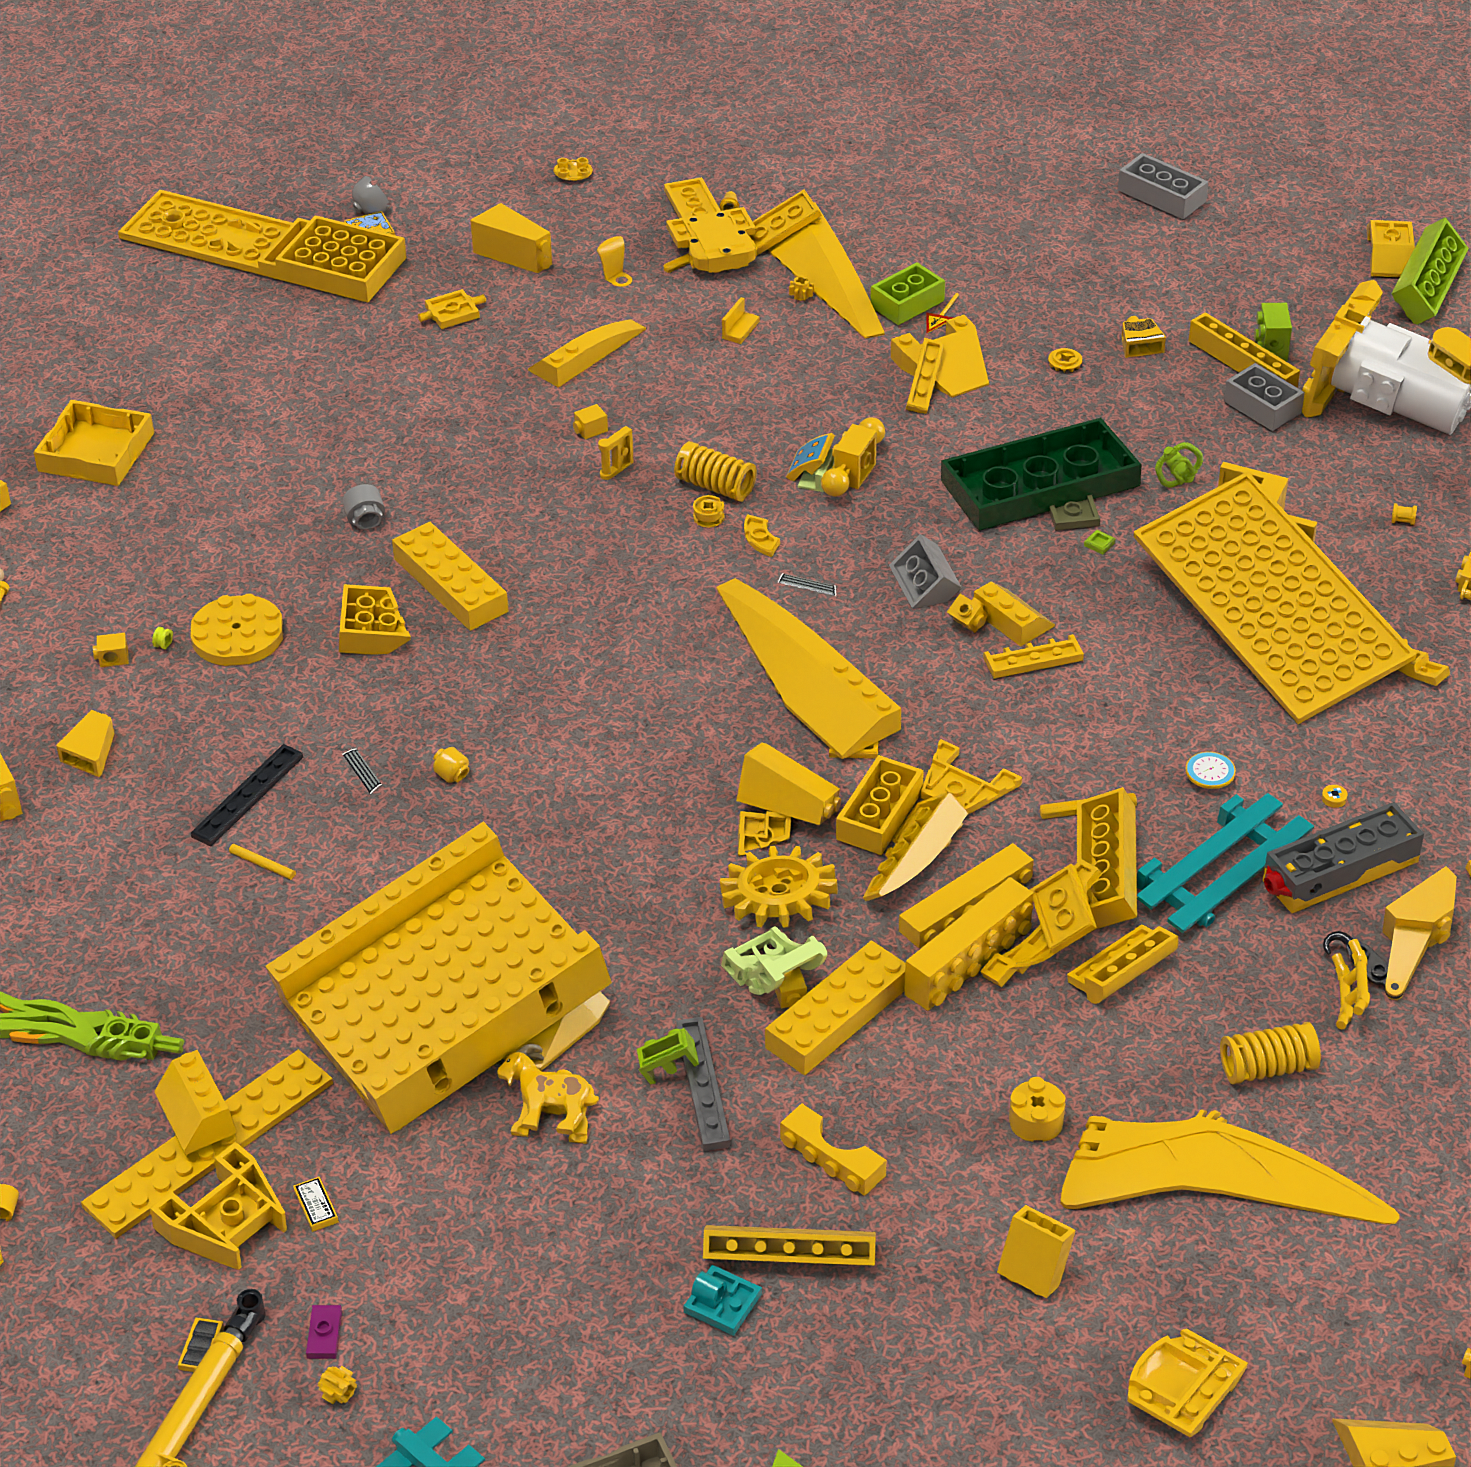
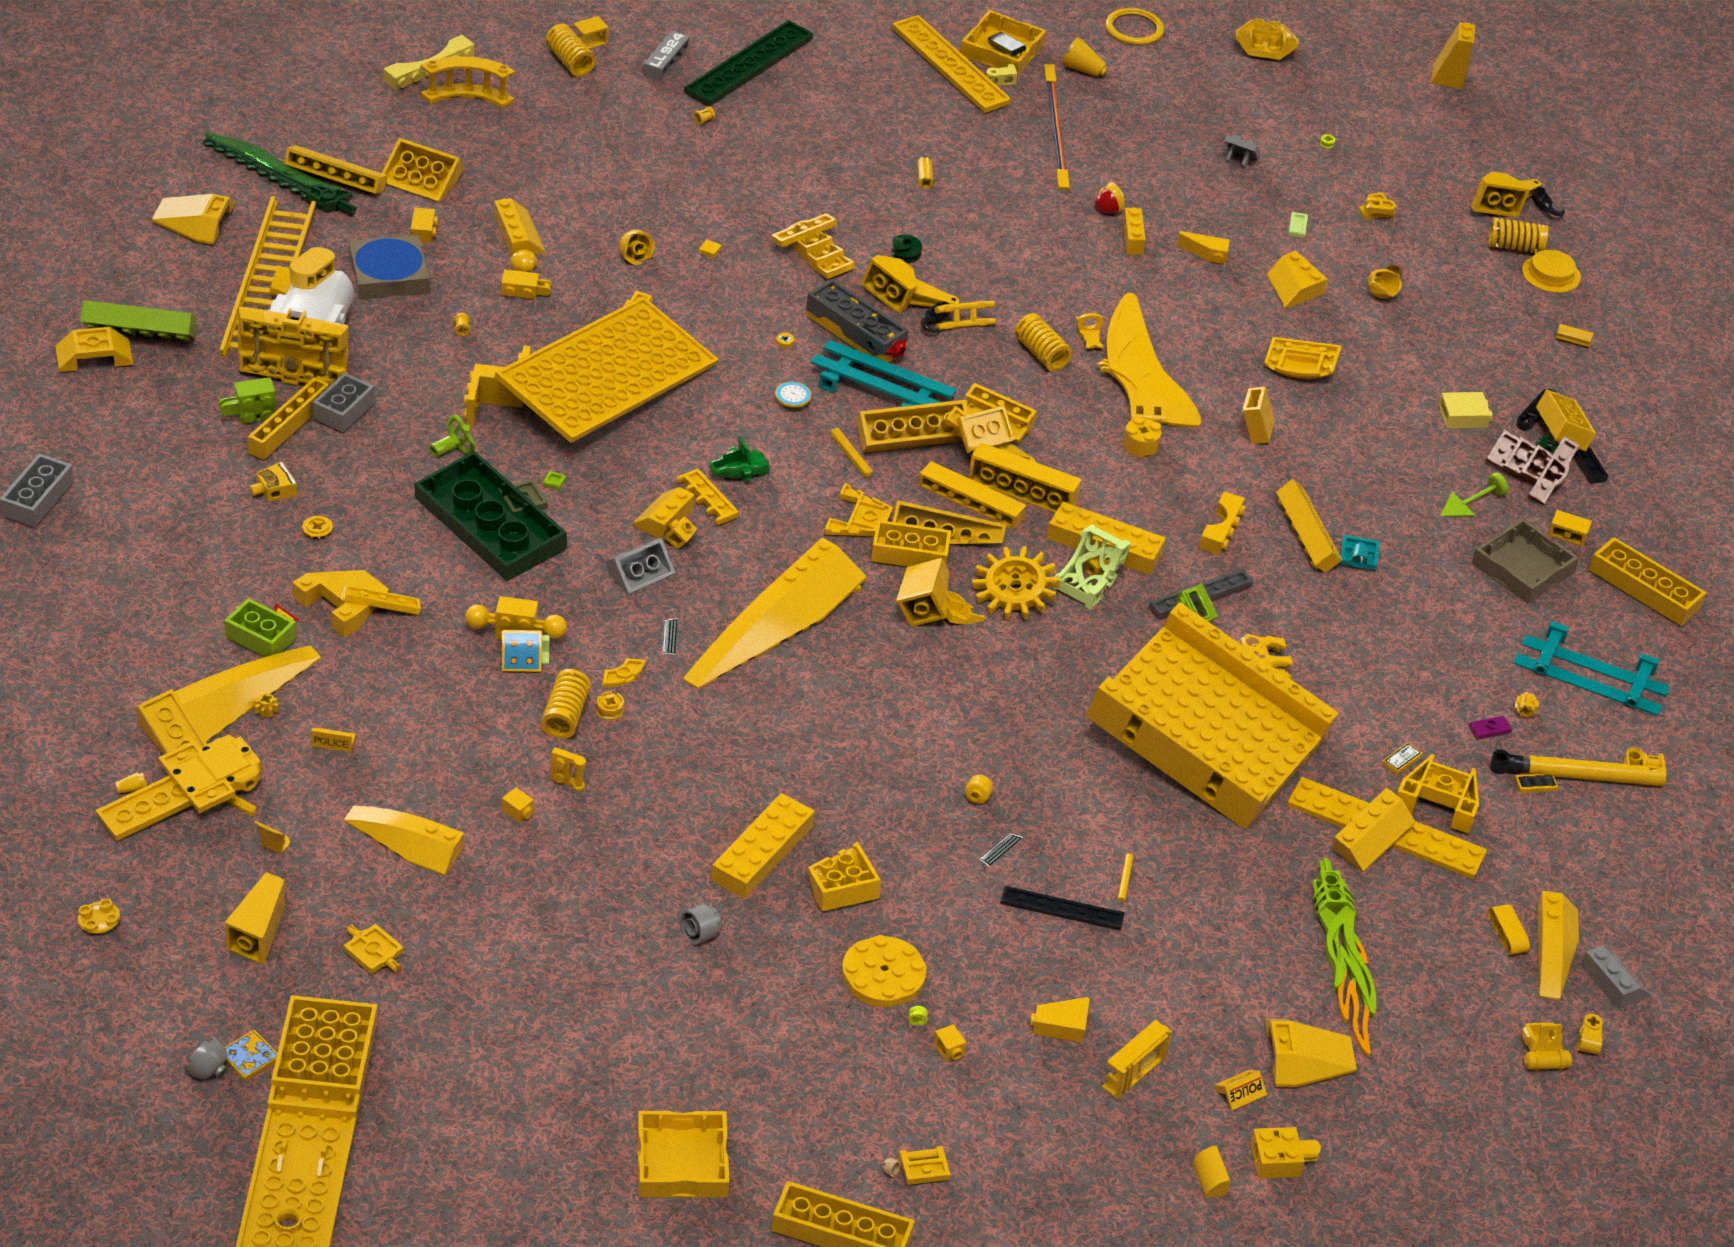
camera: 115 degrees left, 0 degrees up
(1081, 690) = (740, 463): none -> green piece
(1298, 1130) = (1090, 333): none -> yellow hair

